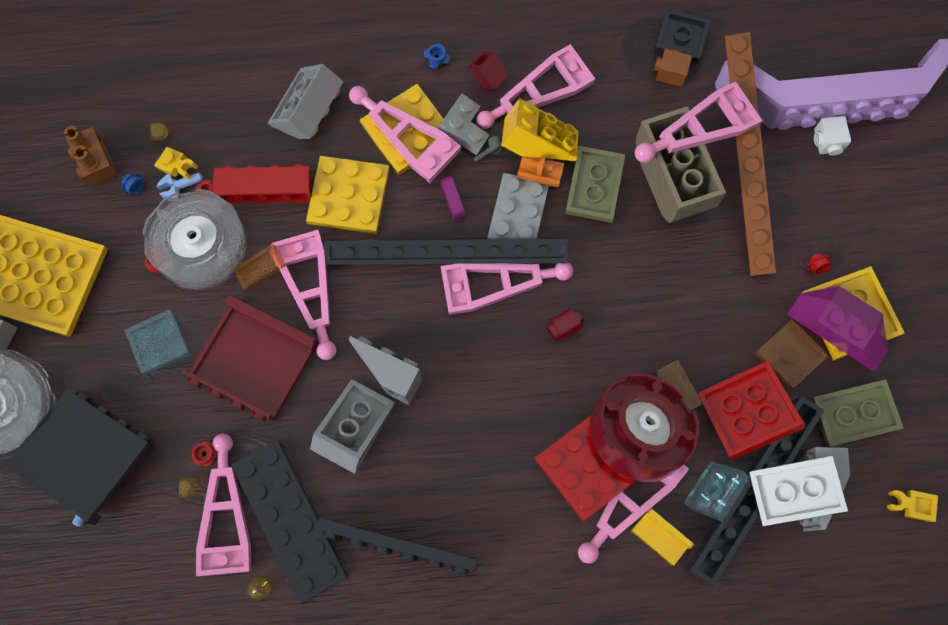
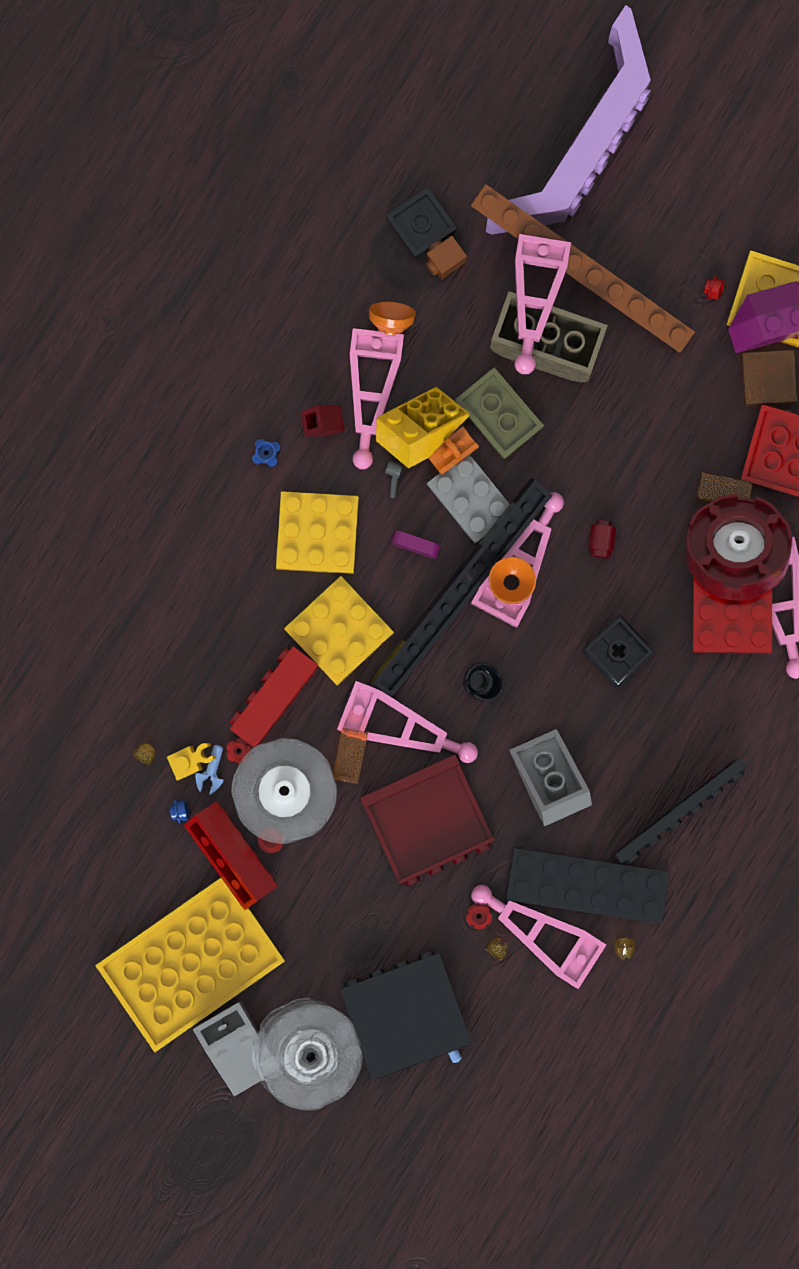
camera: 55 degrees left, 10 degrees up
(90, 155) = (125, 829): dark orange brick -> none
(120, 239) = (230, 855): none -> red brick
(157, 342) = (350, 889): clear light blue plate -> none
(306, 101) = (220, 603): light grey slope -> none
(387, 319) = (483, 682): none -> black hair
(396, 377) = (537, 714): light grey slope -> none
(437, 154) = (369, 530): bright pink plate -> none
(459, 127) = (355, 487): light grey plate -> none
(478, 267) = (518, 568): none -> orange piece
(481, 386) = (618, 634): none -> black brick
(599, 62) = (391, 317): none -> orange piece
(832, 135) = (616, 179): white brick -> none

